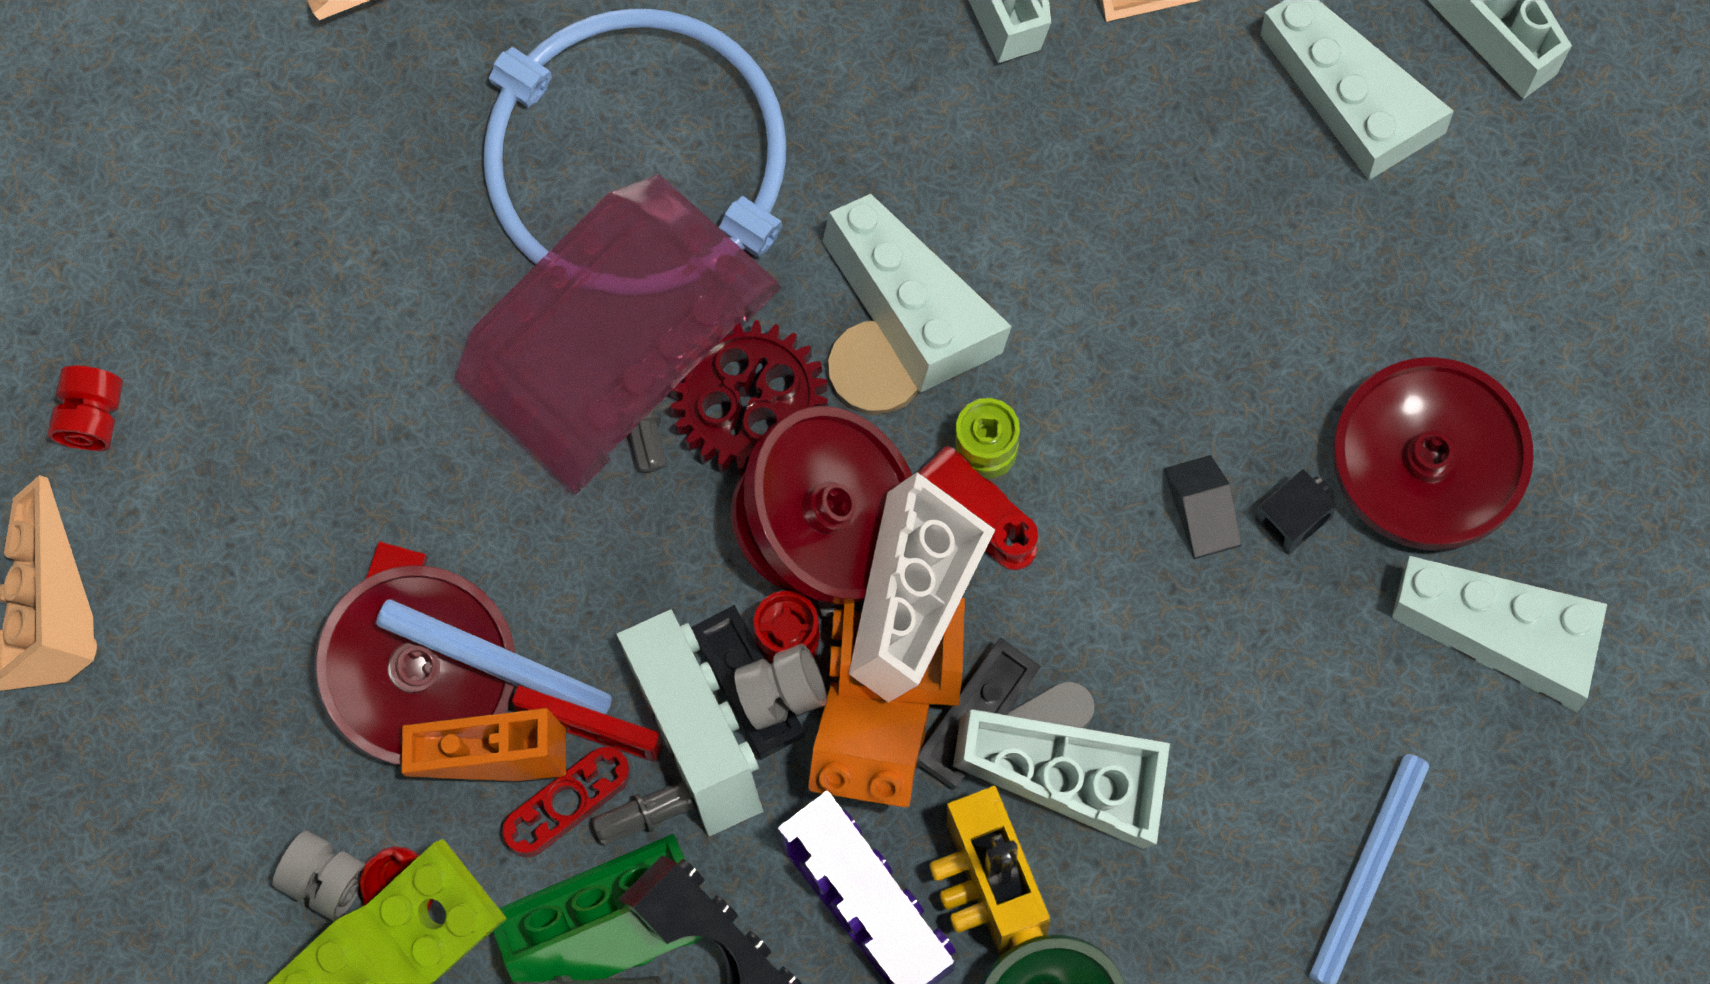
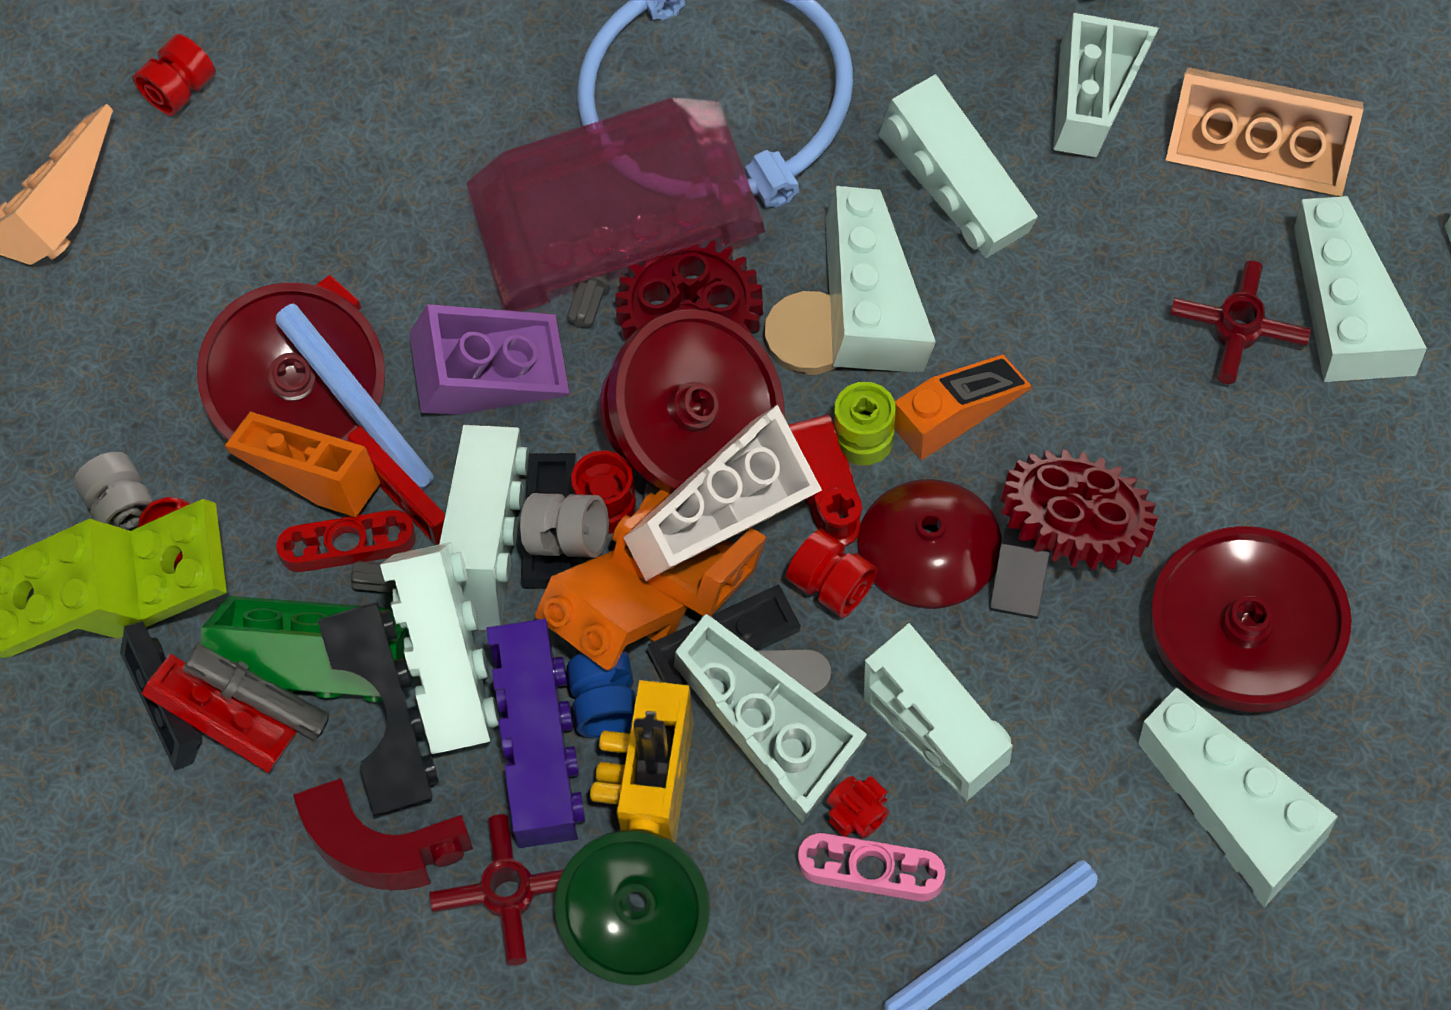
camera: 30 degrees right, 10 degrees down
(589, 553) = (485, 359): none -> medium lavender slope
(742, 864) = (442, 646): none -> light aqua wedge
(907, 832) = (602, 695): none -> blue wheel
(925, 132) = (956, 166): none -> light aqua wedge
(1040, 601) = (824, 568): none -> red wheel
(1057, 370) = (955, 403): none -> orange slope
(1098, 551) = (926, 566): none -> dark red dish
(1189, 809) = (858, 806): none -> red gear
(1212, 689) = (935, 713): none -> light aqua wedge
(1228, 425) = (1078, 509): none -> dark red gear
(1267, 143) = (1236, 336): none -> dark red bar
(1269, 857) = (910, 858): none -> bright pink beam
(1297, 510) = (1101, 609): black brick -> none

